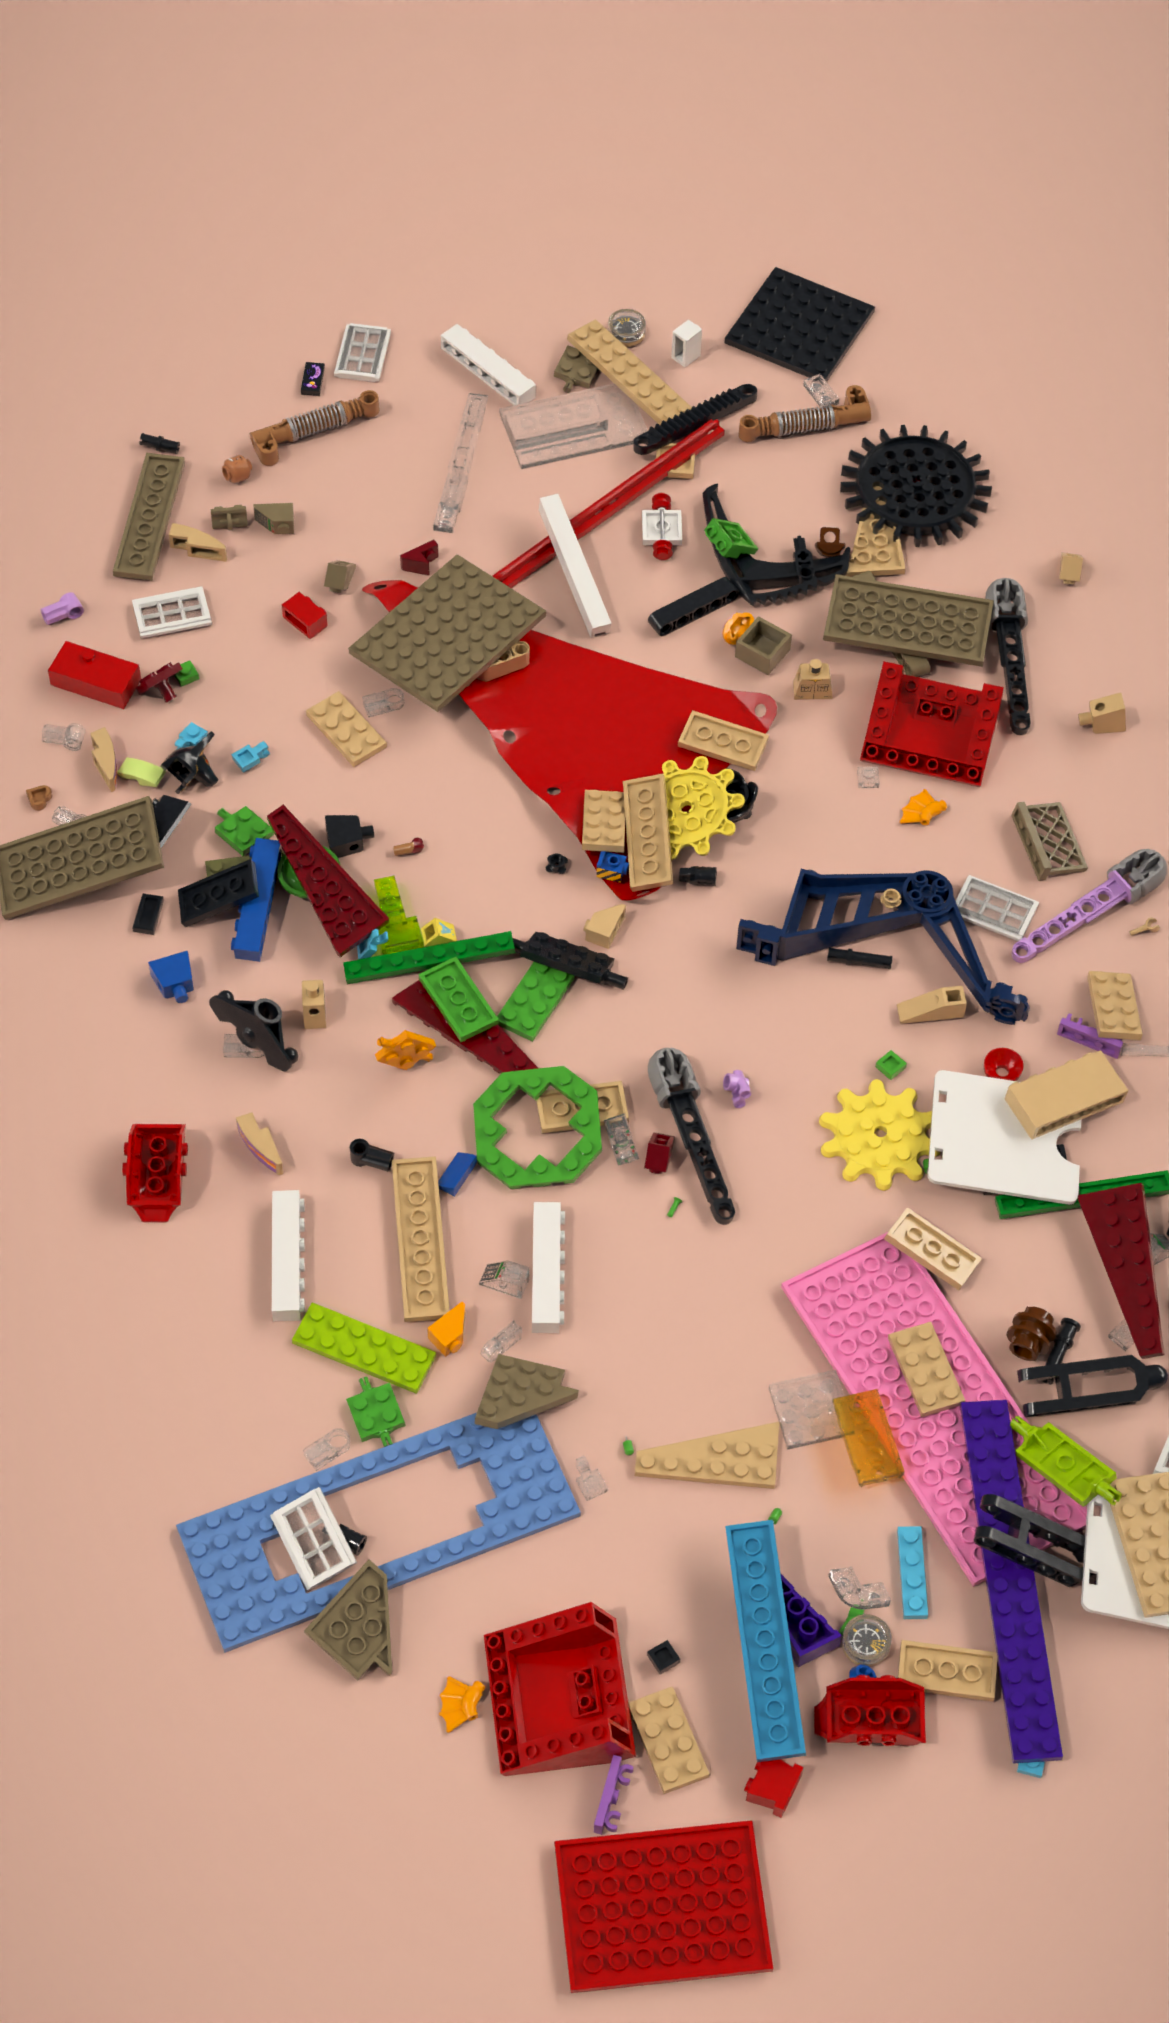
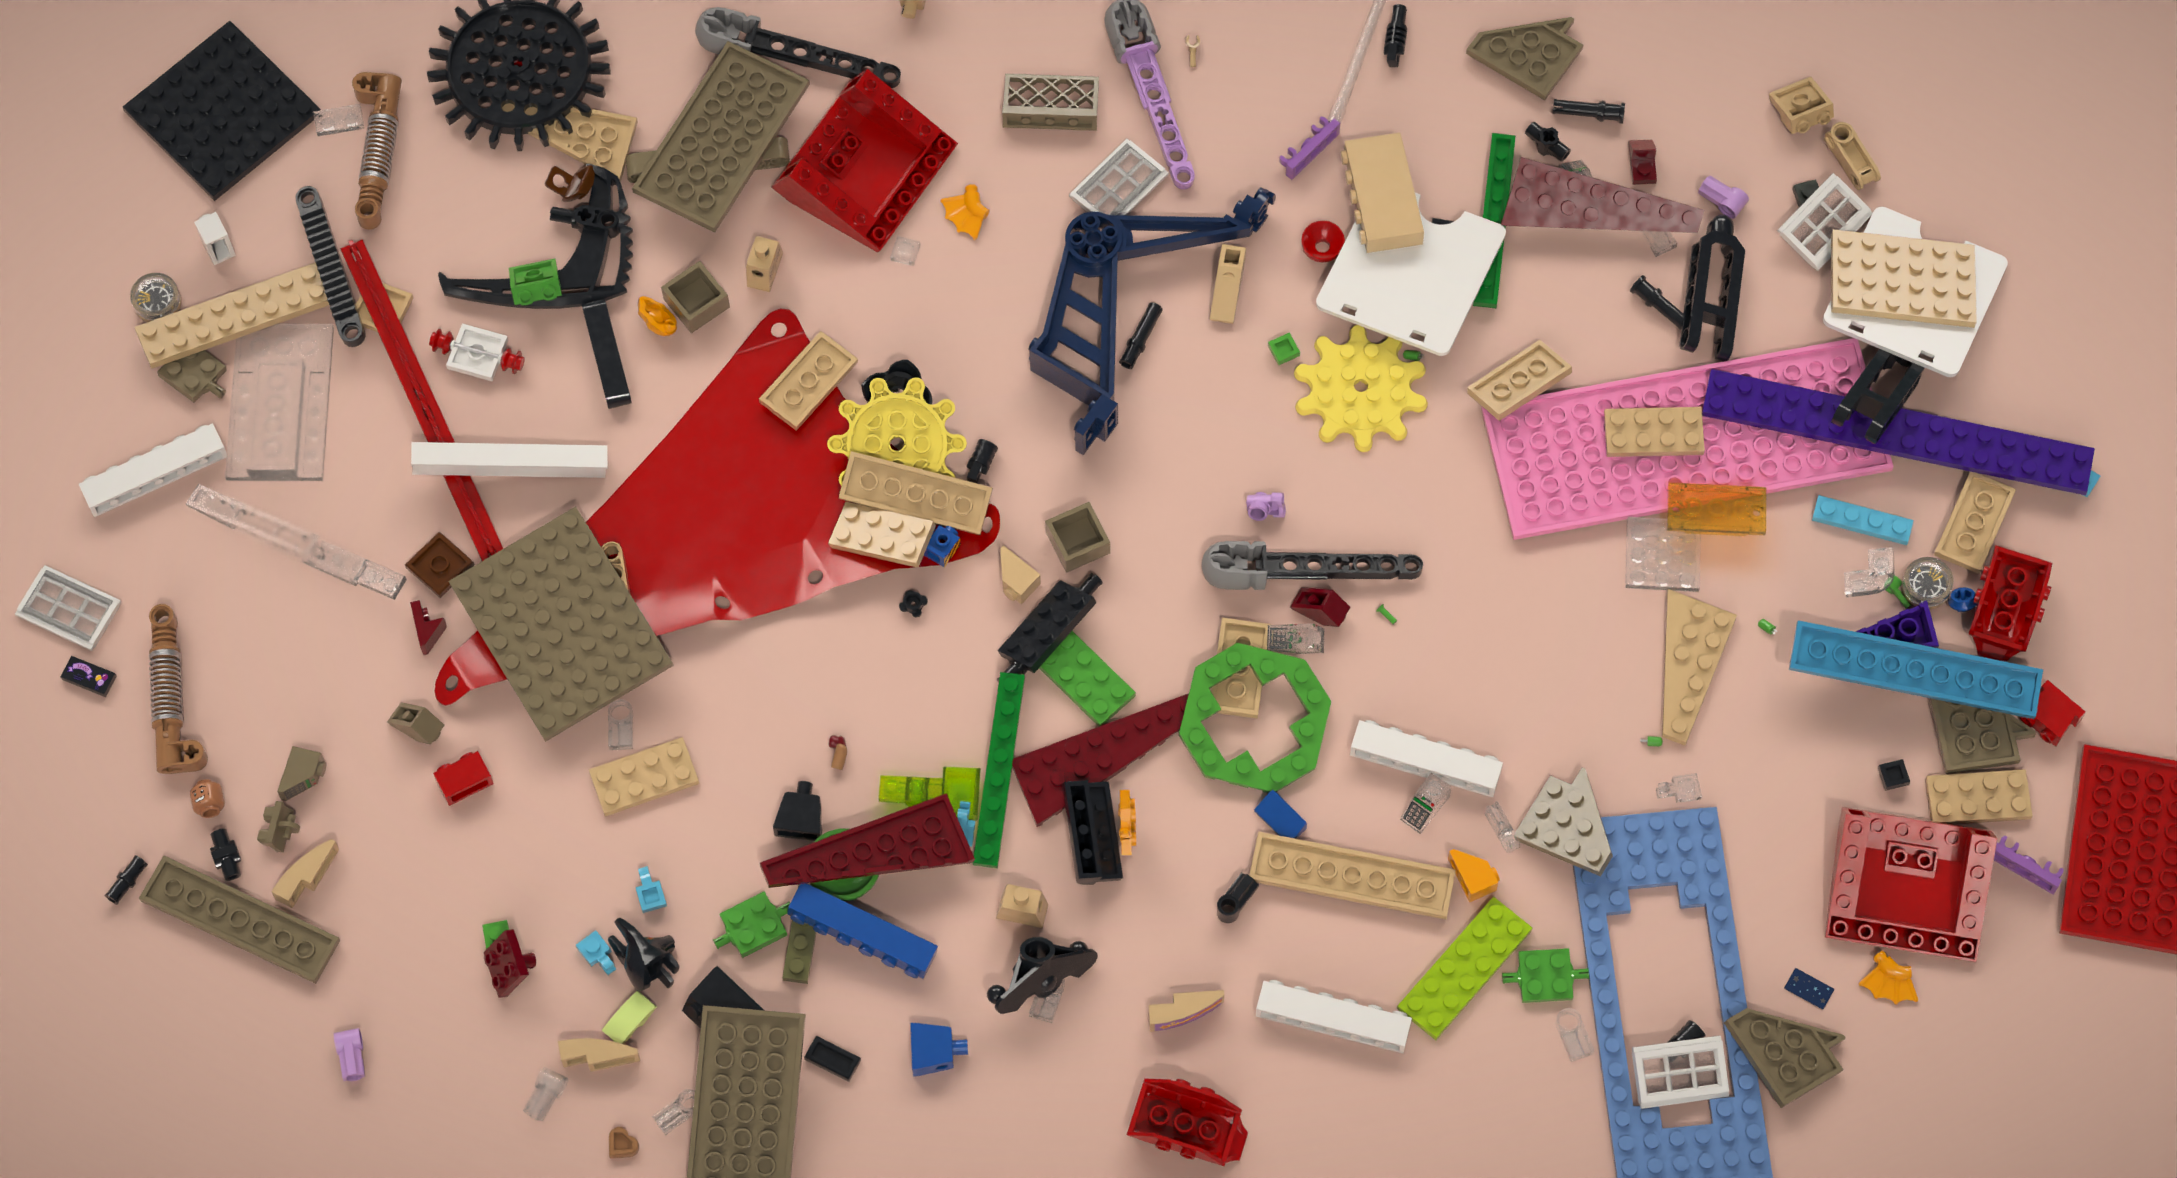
camera: 70 degrees left, 10 degrees up
(94, 674) = (468, 1037): red brick -> none
(171, 612) = (398, 929): white piece -> none
(197, 493) = (225, 854): none -> black axle
(218, 893) = (844, 969): black plate -> none
(410, 1016) = (1092, 832): none -> black brick
(432, 1636) = (1809, 988): none -> dark blue sticker
(438, 932) = (975, 750): light yellow brick -> none
(458, 999) = (1070, 751): bright green plate -> none
(478, 551) = (438, 564): none -> reddish brown plate
(654, 956) = (1077, 537): none -> dark tan piece
(724, 1723) = (1976, 736): none -> dark tan wing
(891, 894) = (1090, 270): tan plate -> none
(1031, 1333) = (1648, 324): reddish brown piece -> none
(1065, 1463) = (1802, 337): lime plate -> none
(1114, 1005) = (1284, 111): tan plate -> none

